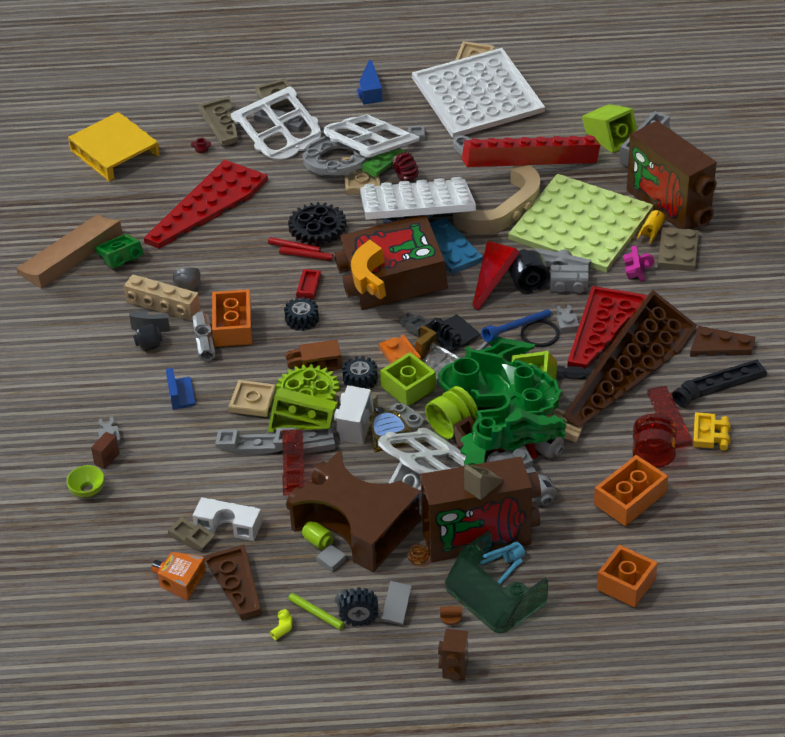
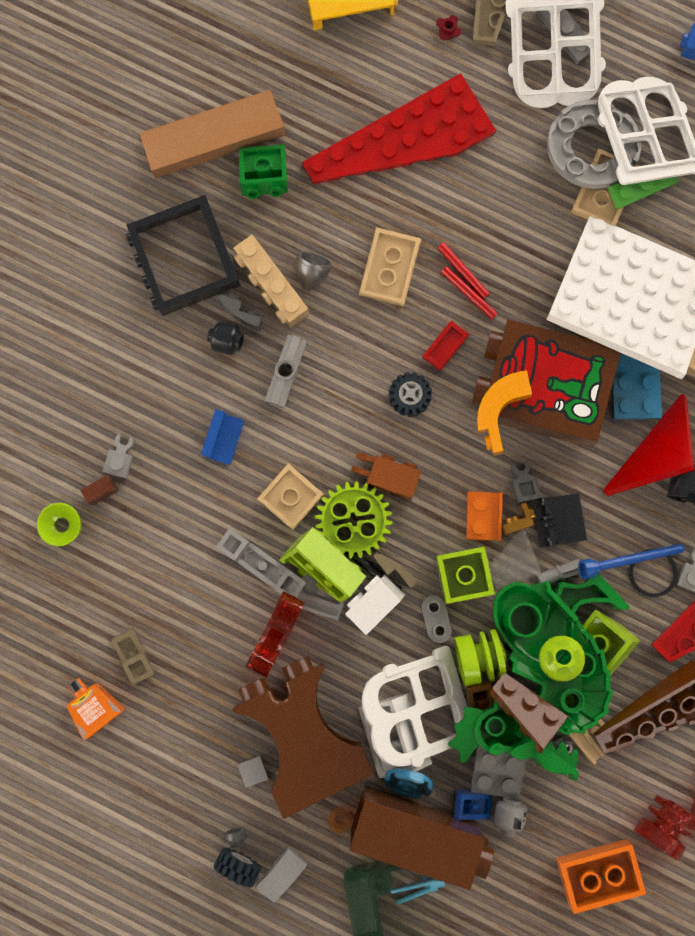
camera: 30 degrees right, 40 degrees up
(103, 291) = (194, 296): none -> black window
(212, 513) = (192, 674): white arch -> none
(232, 318) = (328, 364): orange brick -> none
(235, 578) = (146, 740): reddish brown wing -> none
(241, 263) = (389, 267): none -> tan tile
(285, 625) = (162, 832): neon yellow arm -> none
(316, 611) = (201, 830): lime bar -> none
(317, 223) = (505, 233): black gear -> none
(317, 535) = (253, 738): lime brick -> none
(360, 372) = (427, 520): black wheel -> none
(385, 422) = (404, 630): torso -> none
(405, 167) = (659, 217): dark red gear -> none
(451, 615) = (327, 919): dark orange plate -> none
(480, 481) = (421, 859): dark tan slope -> none
(484, 404) = (533, 714): none -> wing
(506, 376) = (555, 670): none -> lime piece
(573, 371) = (653, 660): black axle -> none

